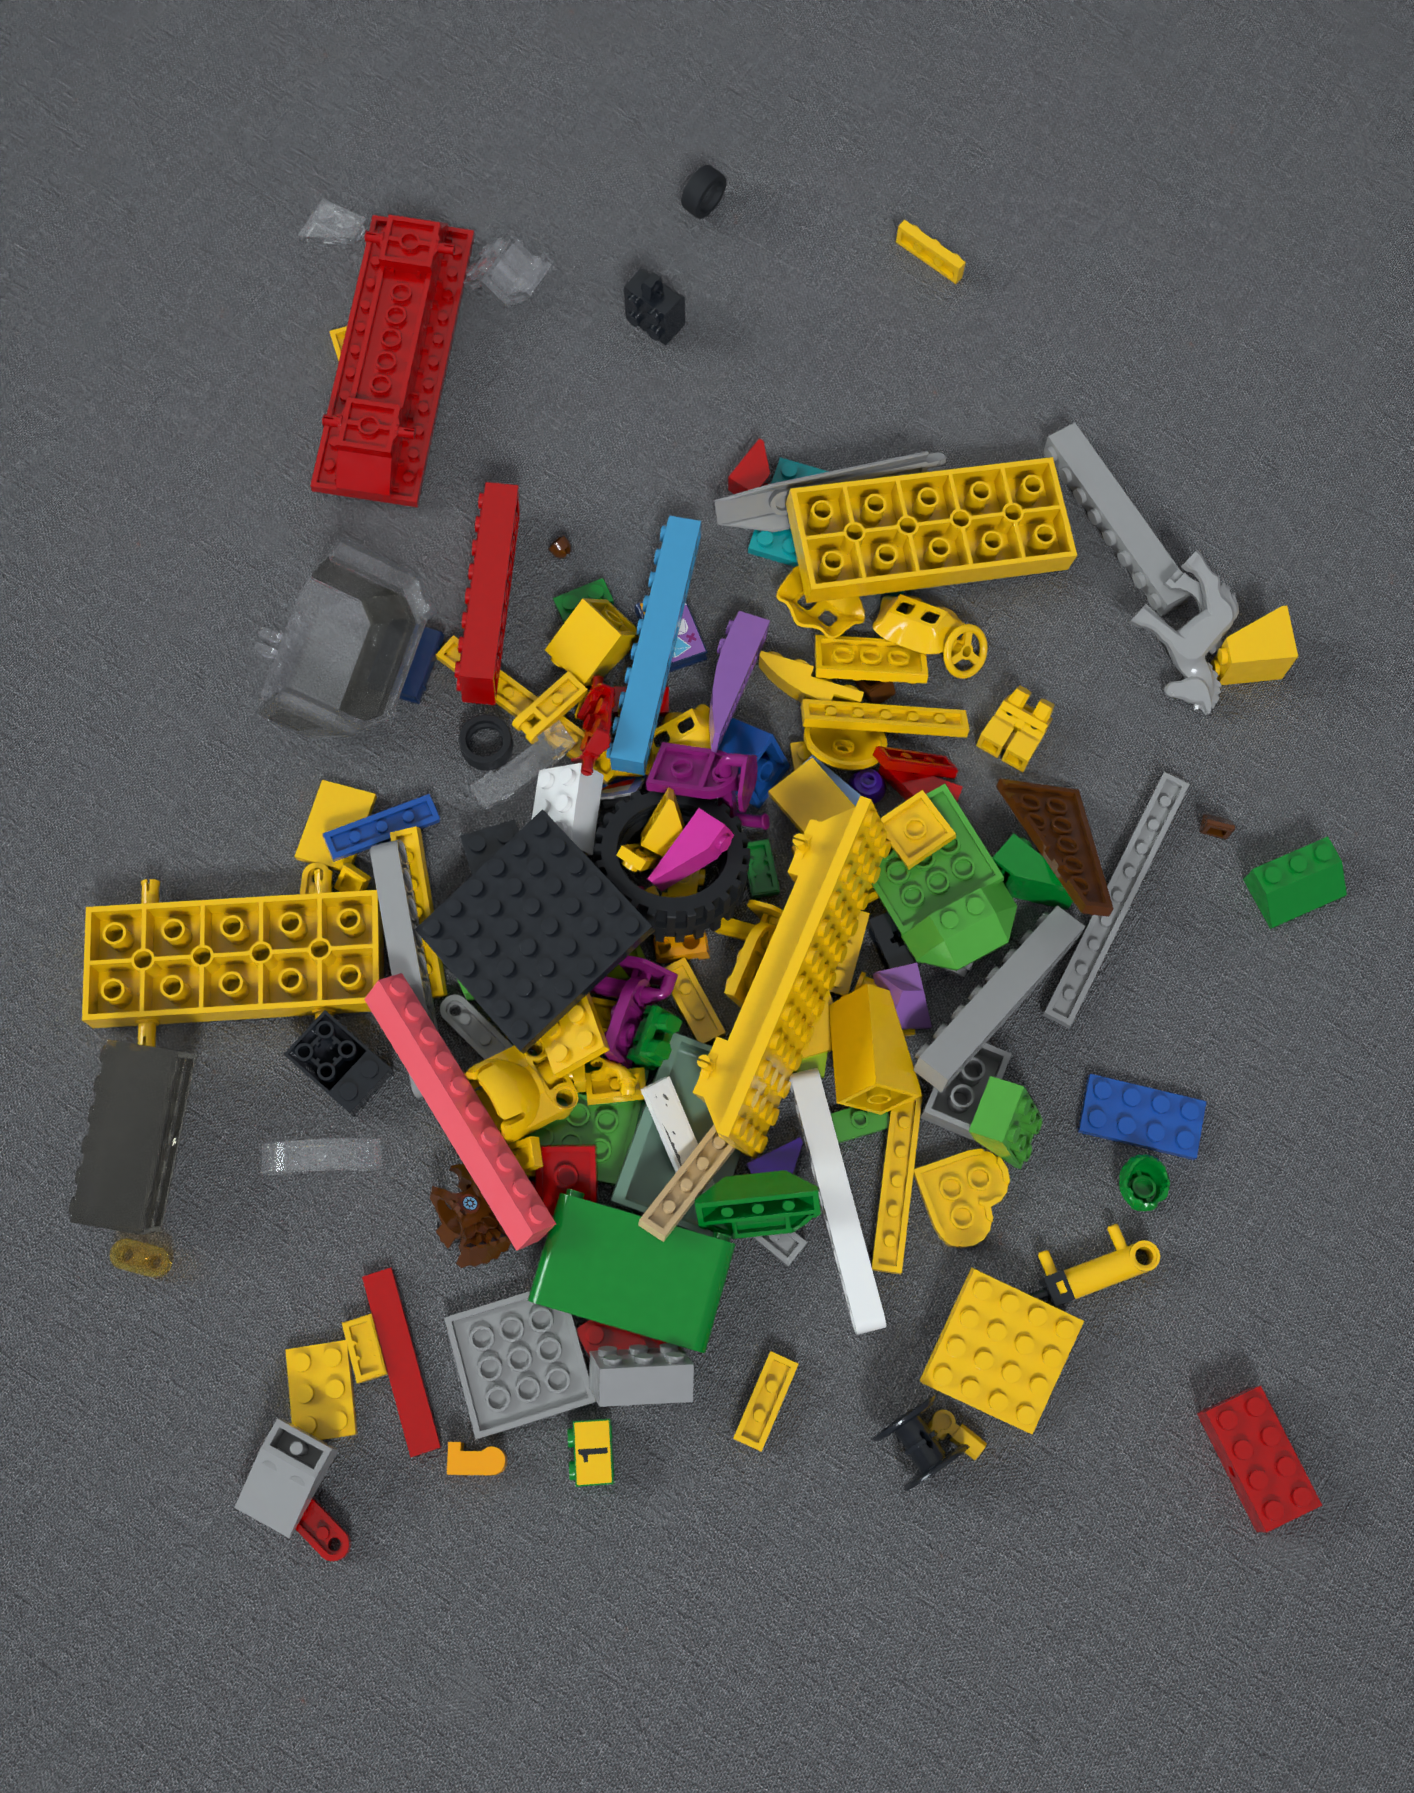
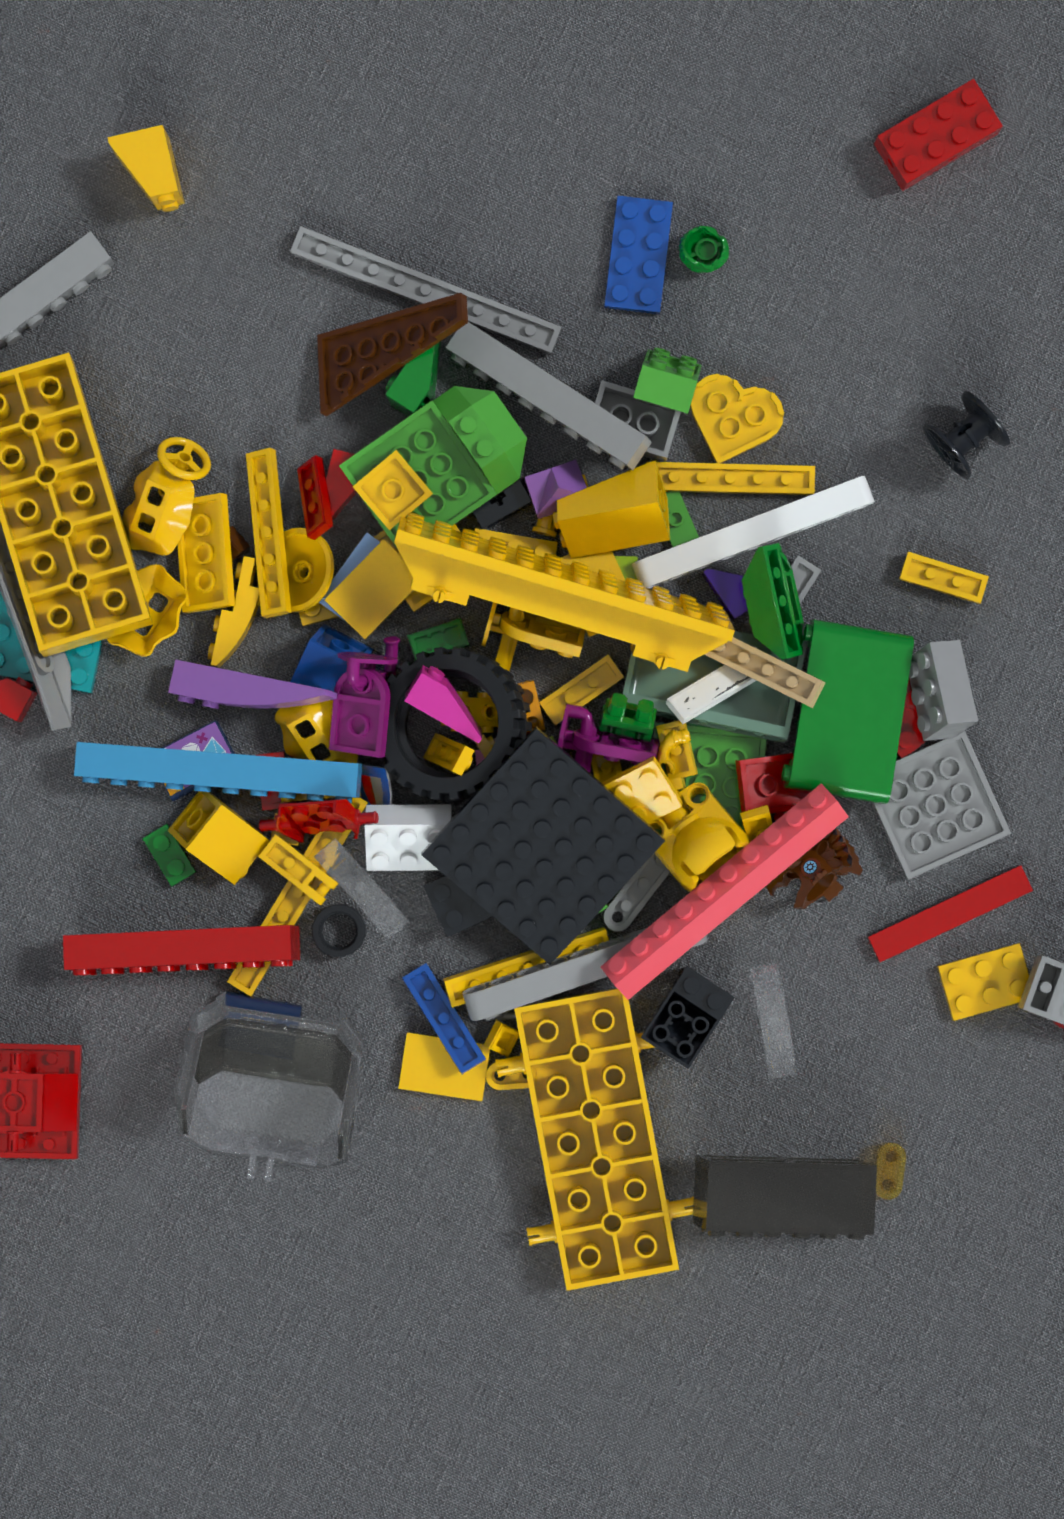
camera: 95 degrees left, 15 degrees up
(364, 1348) = (943, 948): yellow plate -> none
(485, 1462) = (1030, 830): light orange leg -> none
(560, 547) = (111, 888): reddish brown hinge -> none
(592, 1452) = (1009, 726): yellow brick -> none
(664, 825) = (420, 735): yellow slope -> none
(868, 784) = (342, 535): dark purple cone -> none
(944, 1423) = (942, 416): yellow bar -> none
(1001, 1351) = (875, 369): yellow plate -> none
(1016, 729) = (249, 400): yellow hips -> none
(1096, 1273) = (807, 316): yellow piece -> none
(1198, 636) = (143, 226): light grey animal -> none
(1216, 826) = (337, 197): reddish brown slope -> none
(1297, 882) = (389, 117): green slope -> none

